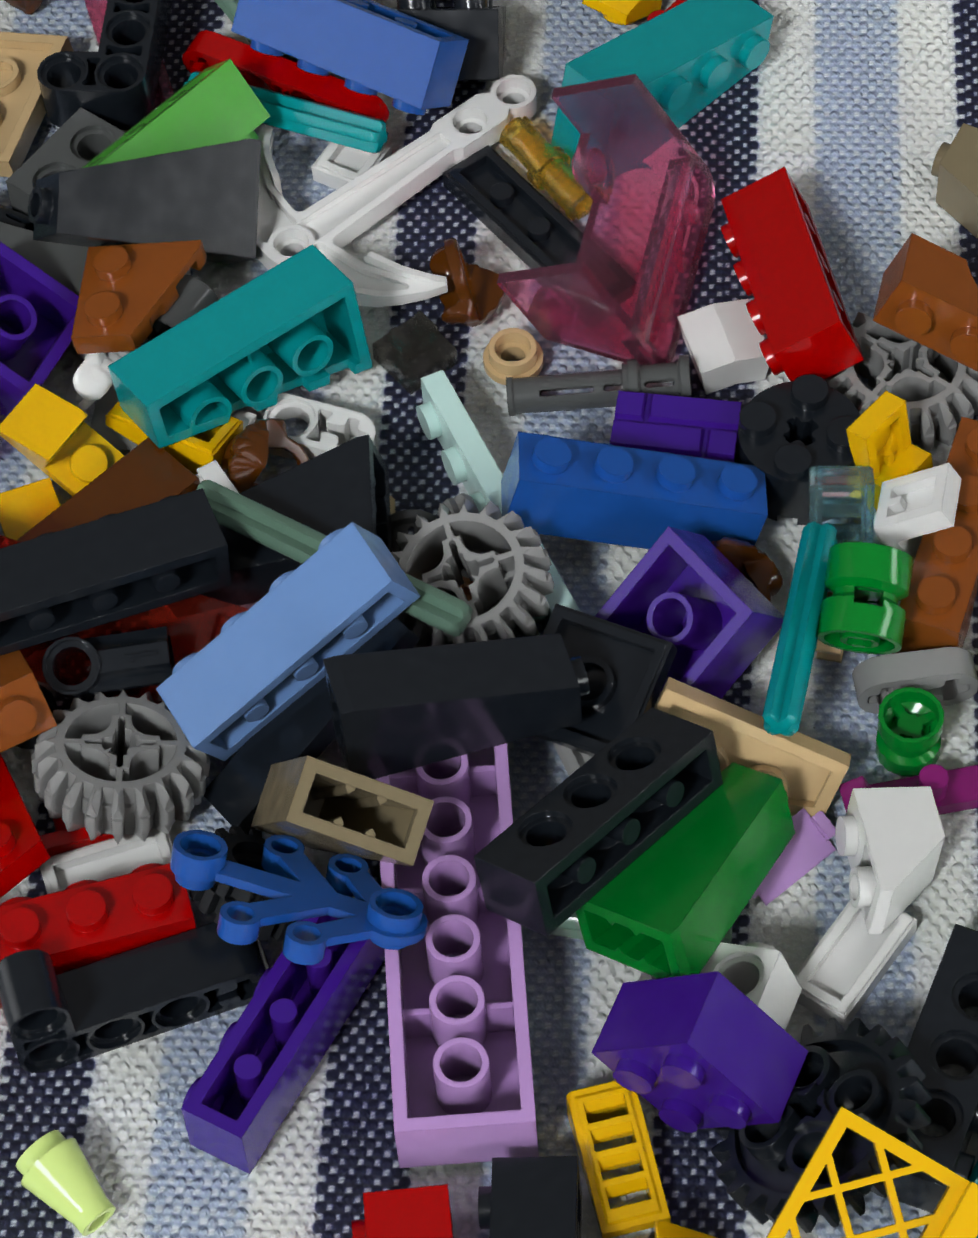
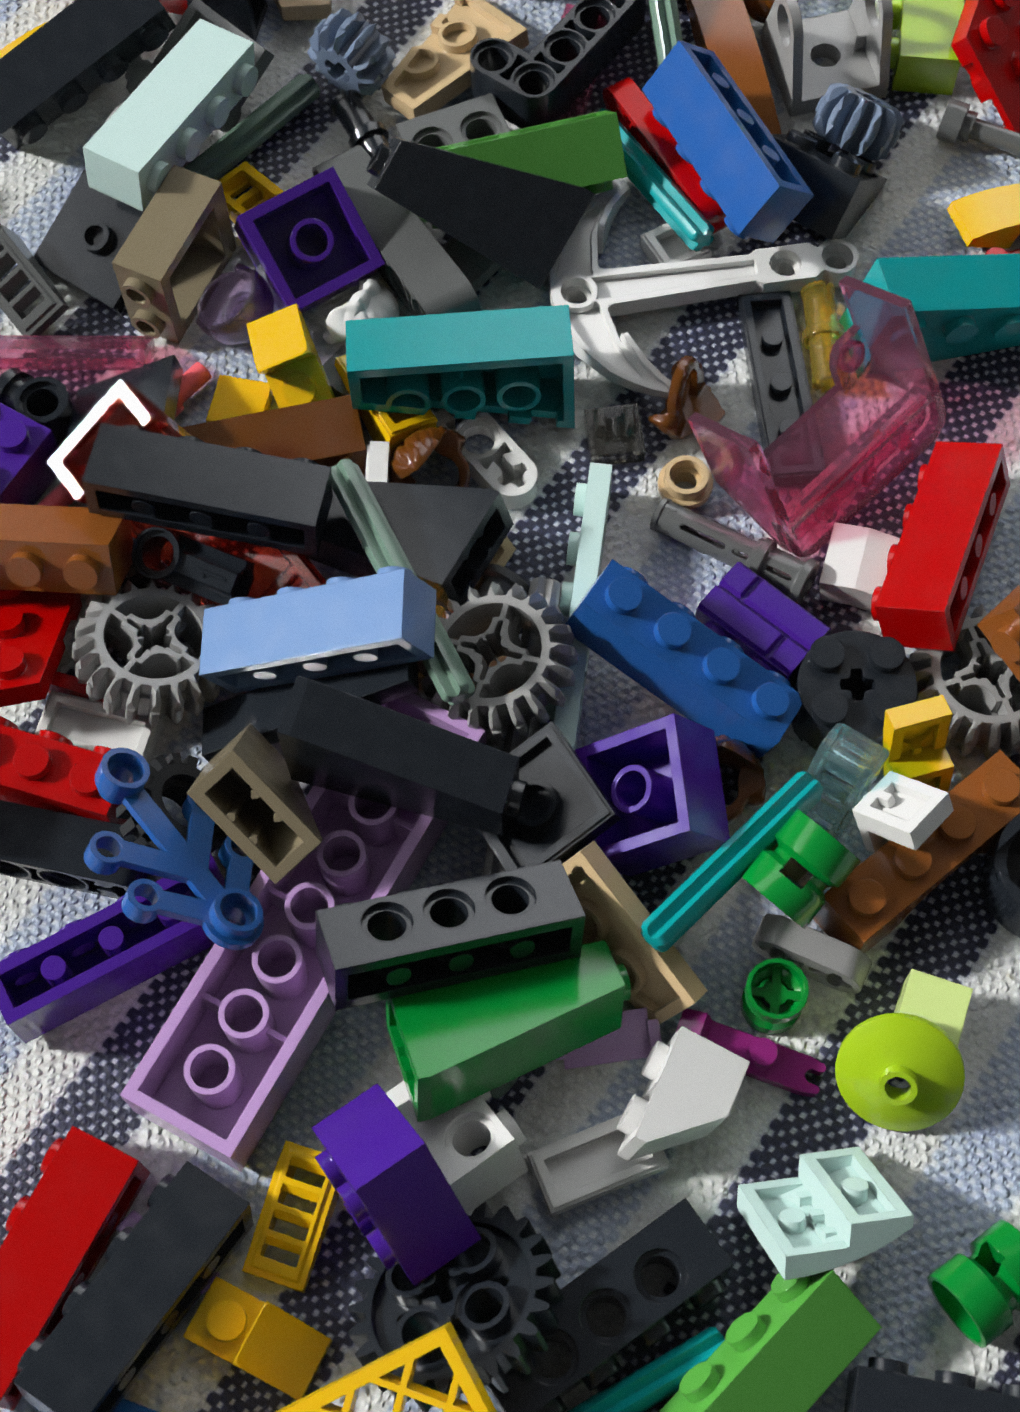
camera: 30 degrees right, 10 degrees up
(128, 291) = (409, 266): dark orange wing -> none

